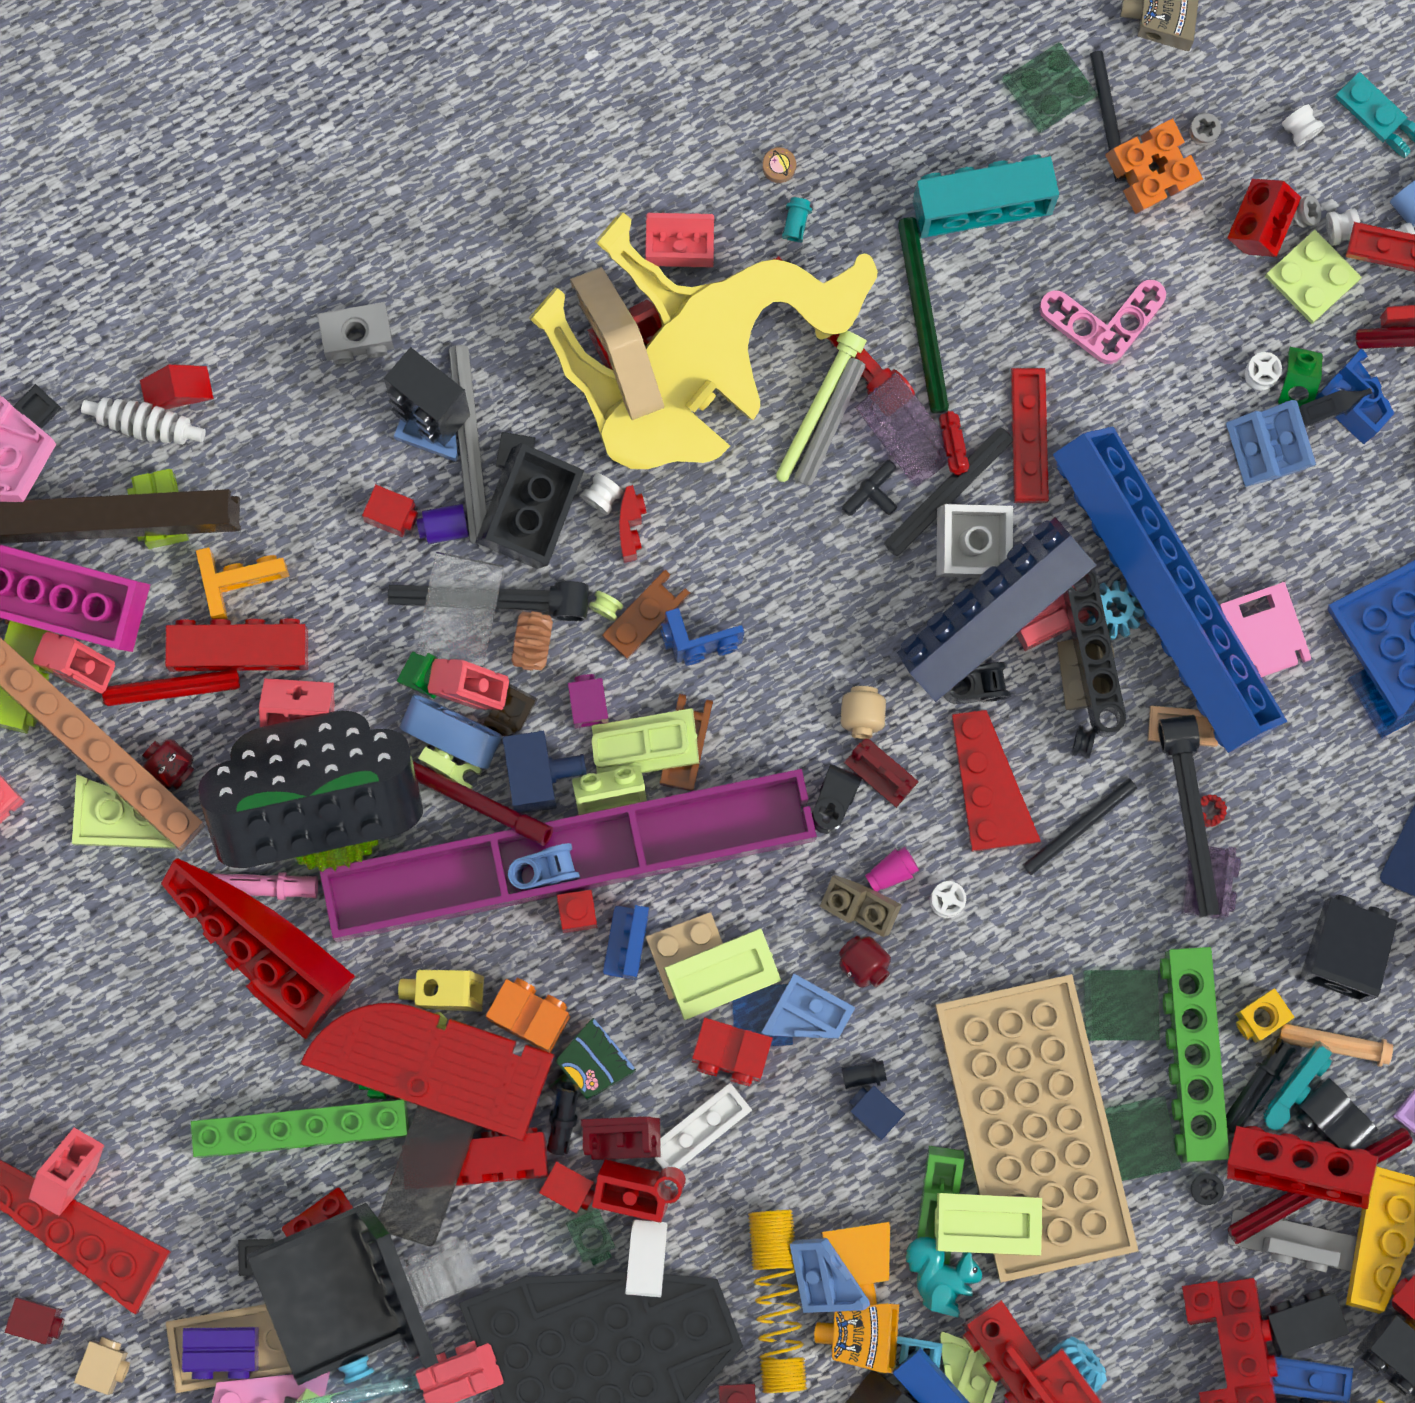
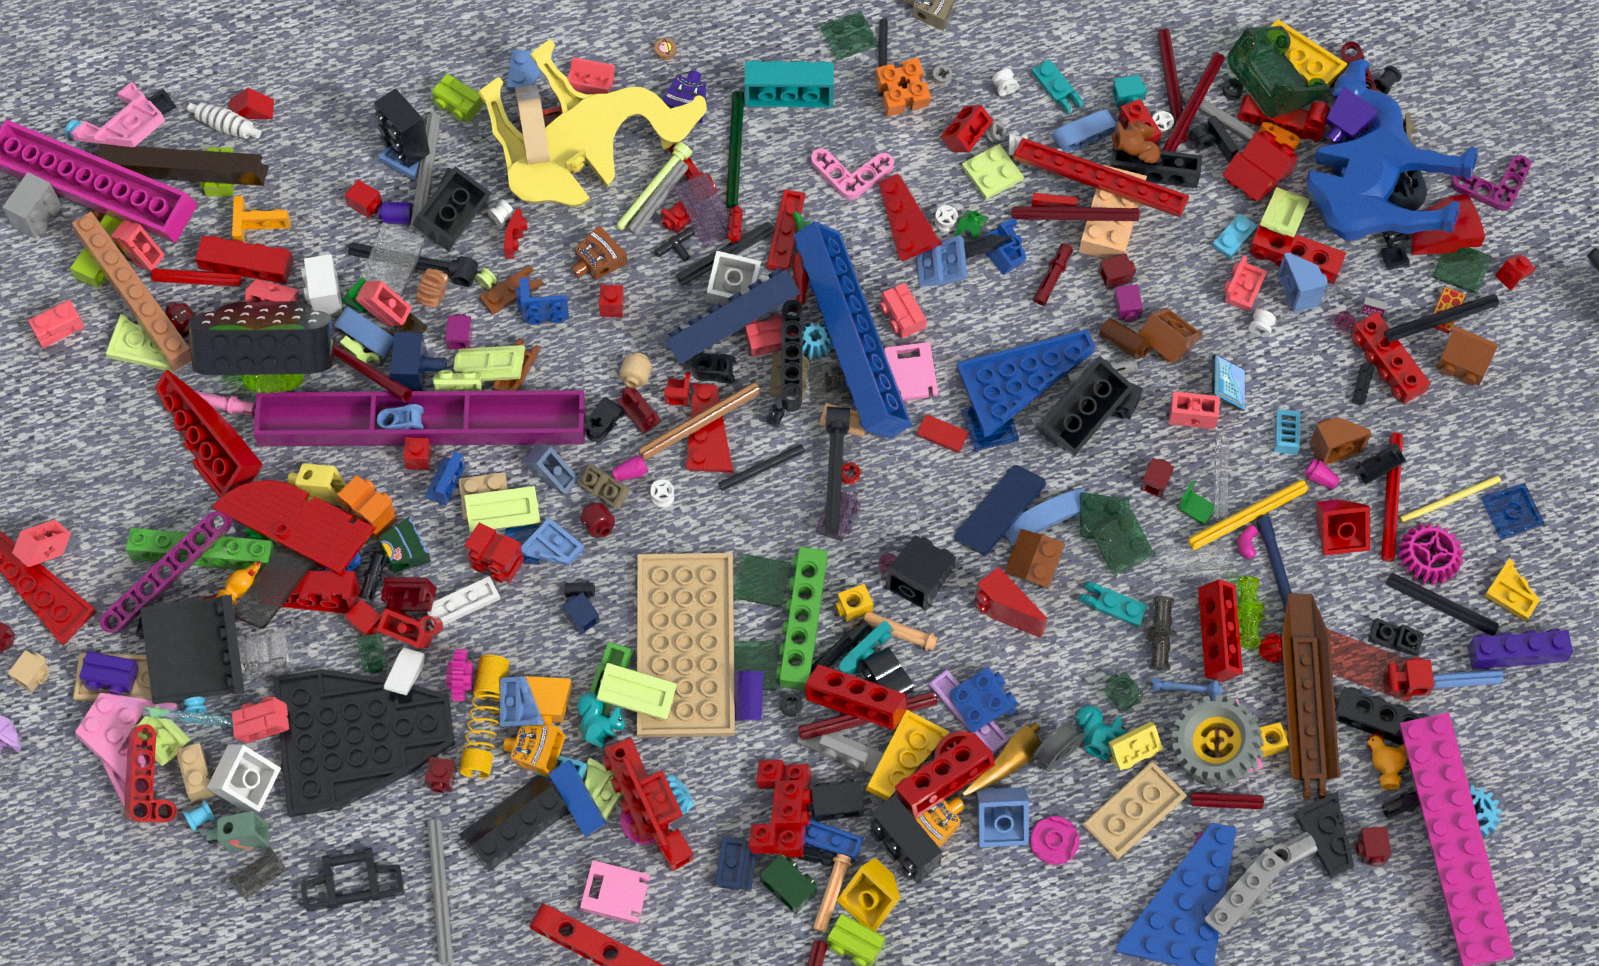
camera: 15 degrees right, 15 degrees down
(260, 1199) = (155, 576): none -> magenta beam
(338, 324) = (362, 87): light grey brick -> none
(370, 674) = (322, 285): none -> white brick
(372, 1173) = (239, 582): none -> light orange animal
(487, 314) = (457, 98): none -> lime brick
(574, 239) = (522, 70): none -> medium blue wing
(729, 1250) = (459, 675): none -> dark pink gear
(763, 535) = (598, 255): none -> dark orange torso
(776, 893) = (550, 468): none -> sand blue slope
(796, 219) = (667, 79): teal pin -> none
(802, 607) = (611, 301): none -> red brick
(831, 241) = (684, 90): none -> dark purple torso
(861, 447) = (675, 218): none -> red bracket
(931, 729) = (678, 391): none -> red panel
(978, 777) = (699, 420): none -> medium nougat axle
(1063, 493) = (800, 275): none -> red piece
(1147, 1191) = (748, 695): none -> dark purple brick
(1148, 674) = (828, 385): none -> clear smoke piece
(1209, 390) = (907, 220): none -> red wing
(1231, 536) = (902, 310): none -> coral brick
(1297, 937) = (886, 559): none -> clear pink hinge
(1330, 720) = (942, 433): none -> red tile

